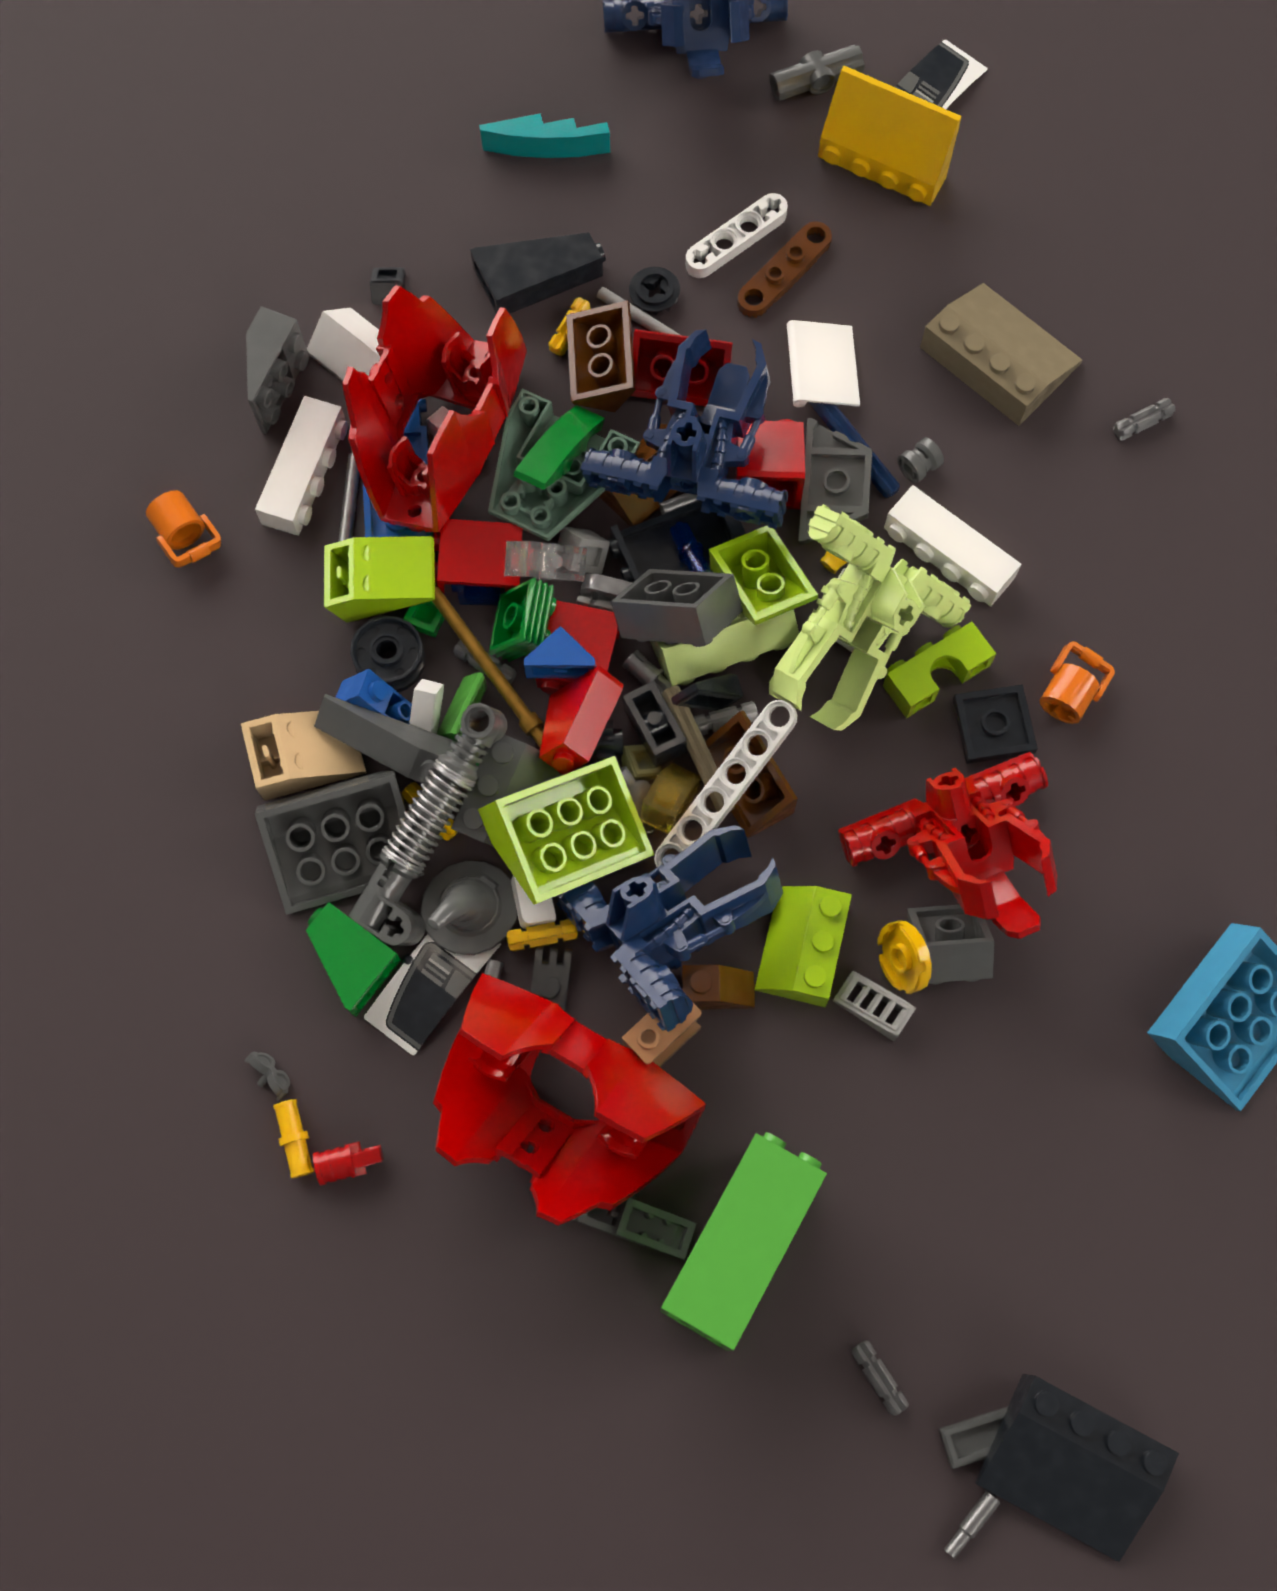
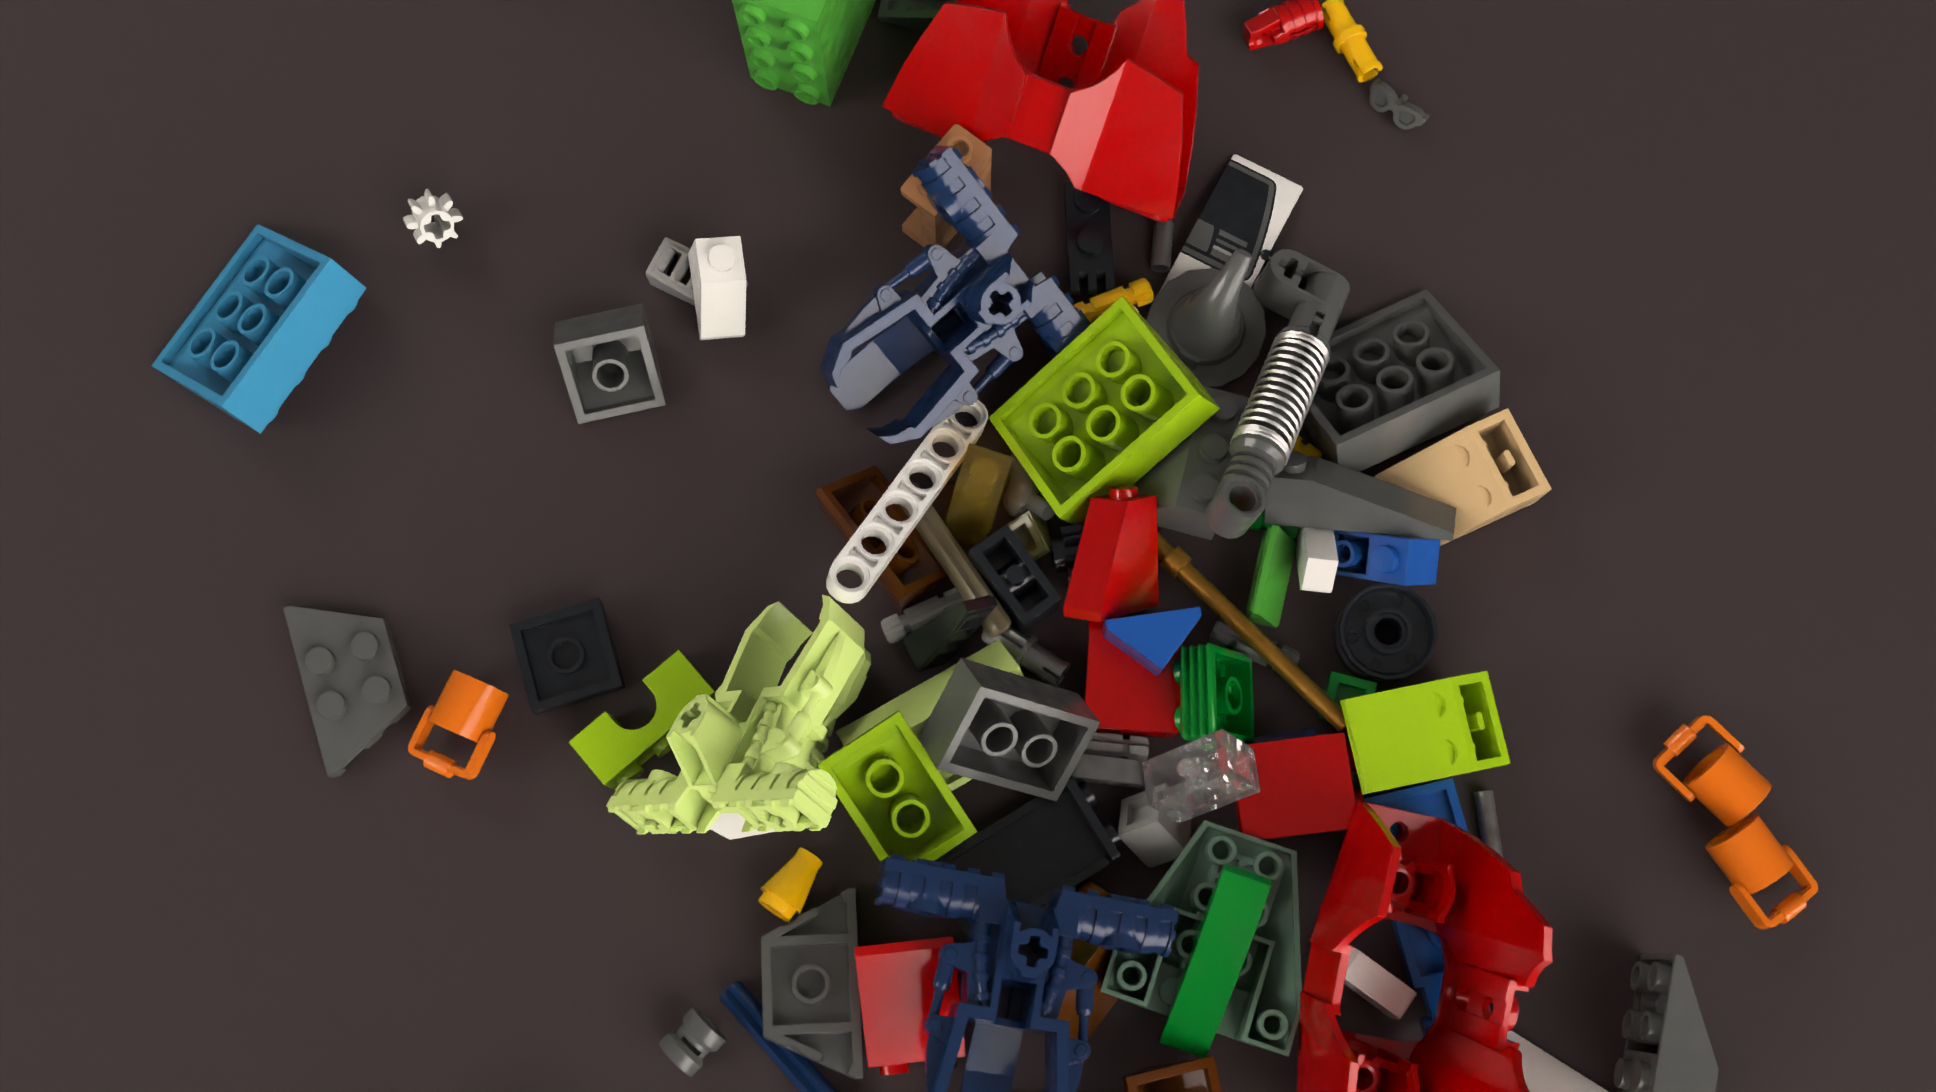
camera: 170 degrees right, 5 degrees up
(172, 465) = (1755, 860): none -> orange piece
(302, 466) = (1578, 895): white brick -> none
(350, 956) = (1343, 239): green slope -> none
(689, 549) = (1003, 841): clear blue axle -> none
(718, 987) = (880, 263): reddish brown slope -> none
(803, 944) = (786, 334): lime slope -> none
(857, 987) = (719, 287): none -> white slope
(904, 957) = (663, 325): yellow tile -> none
(951, 546) = (639, 908): white brick -> none
(973, 839) = (590, 462): red piece -> none
(1091, 1084) = (421, 219): none -> white gear
(1159, 734) = (348, 680): none -> dark grey wing

